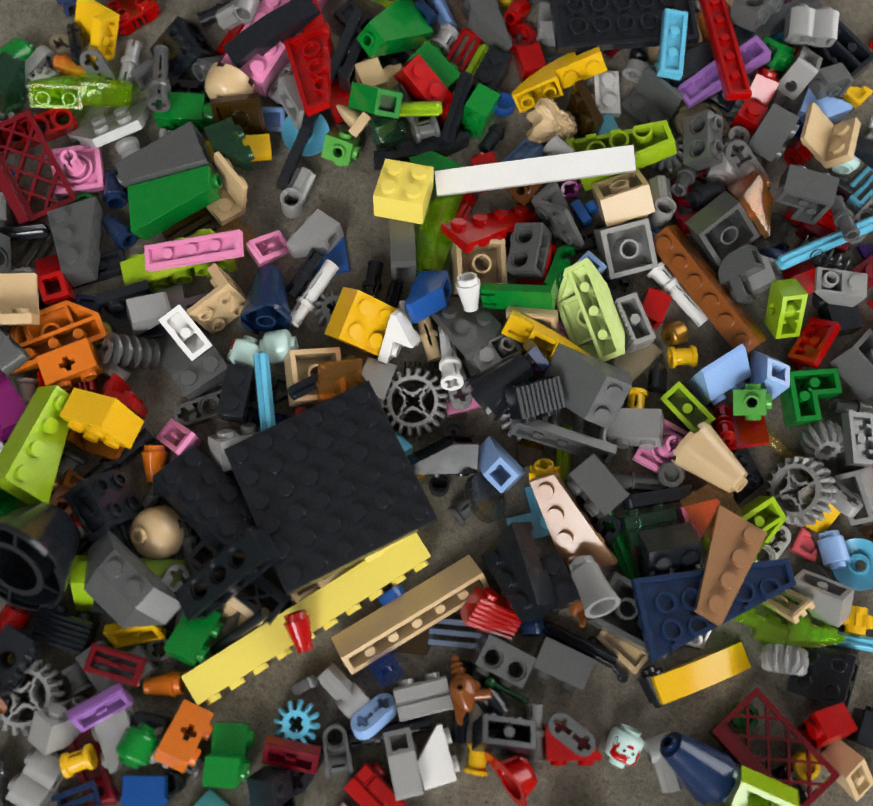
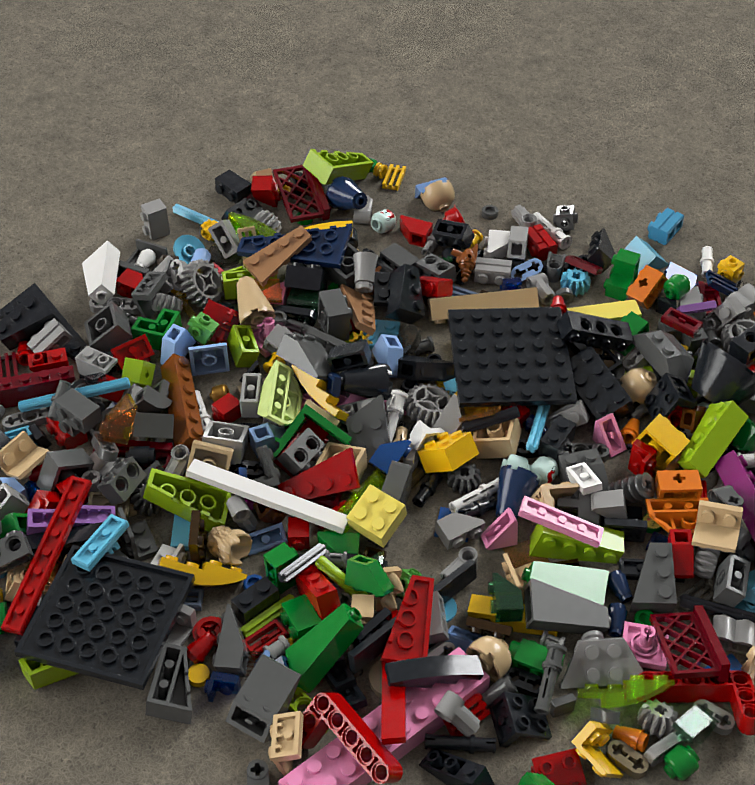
camera: 150 degrees left, 30 degrees down
(76, 41) = (620, 746): black axle -> none
(78, 760) = (710, 292): yellow bush -> none
(130, 60) = (574, 724): light grey pin -> none
(166, 684) = (652, 318): orange cone -> none
(468, 289) = (354, 439): white cone -> none
(529, 60) = (213, 601): red brick -> none
(575, 728) = (416, 228): dark grey beam -> none
(682, 356) = (225, 378): yellow bush -> none

